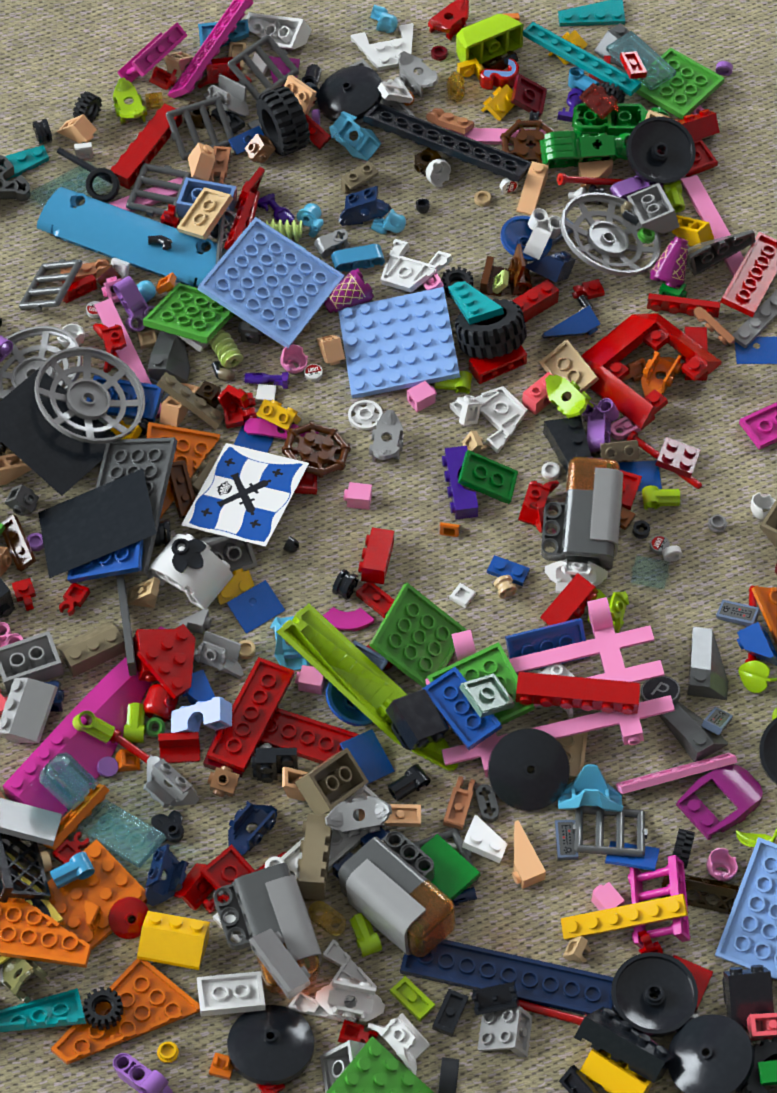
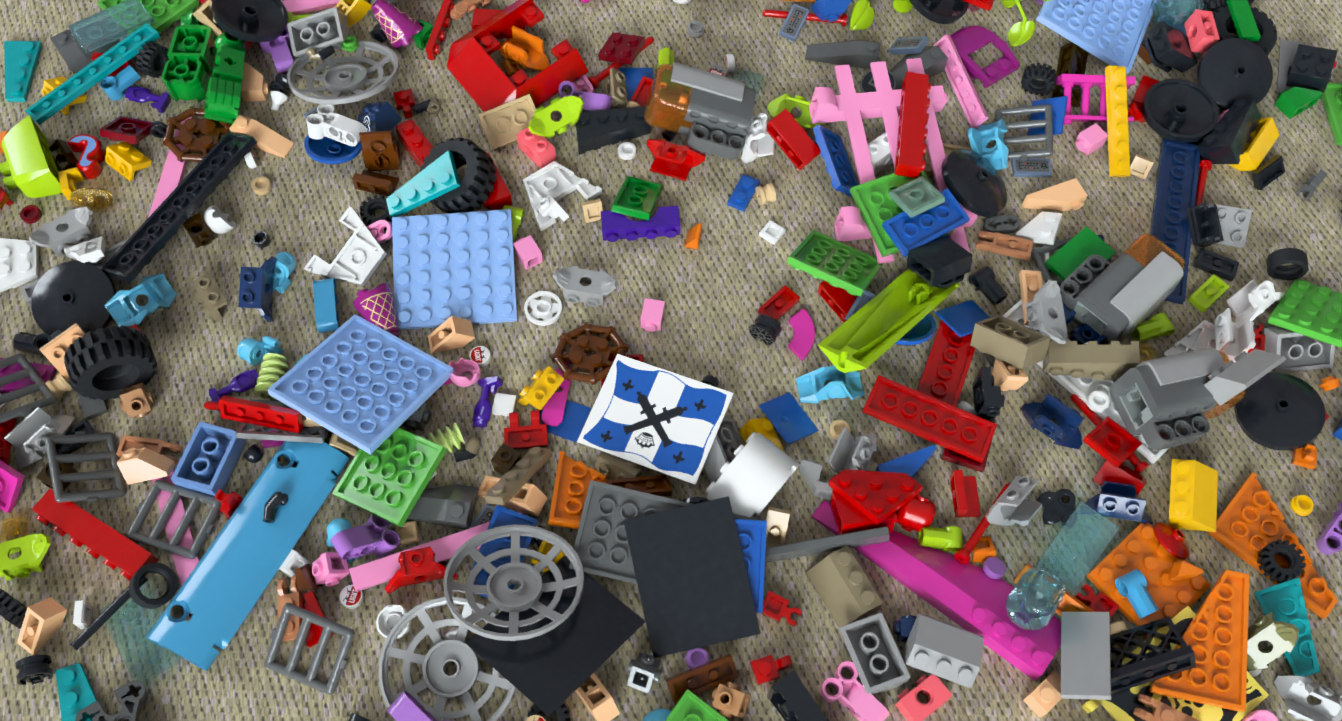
camera: 90 degrees left, 5 degrees up
(95, 726) = (962, 575): lime piece -> none
(148, 727) = (942, 518): bright green plate -> none
(166, 283) = (333, 505): orange plate -> none
(189, 556) = (758, 461): black plate -> none
(204, 213) = (242, 452): tan plate -> none
(215, 713) = (940, 446): light blue arch -> none
(227, 788) = (1007, 447): medium nougat brick -> none
(230, 993) = (1237, 444): white plate -> none
(231, 394) = (518, 424): red bracket -> none
(240, 141) = (116, 420): blue plate -> none
(251, 185) = (200, 407): red plate -> none
(310, 680) = (879, 367): bright pink brick -> none
(330, 243) = (300, 331): light grey piece -> none
(376, 555) = (732, 298): red brick -> none
(449, 121) = (143, 206): nougat hinge -> none
(500, 281) = (386, 171): yellowish green tile -> none
(562, 179) = (267, 97): red bar -> none
(578, 324) = (453, 111): blue slope -> none
(599, 101) = (167, 56): clear red bracket -> none
(633, 65) = (123, 24): plate -> none
(720, 858) = (1049, 56): bright pink hair -> none

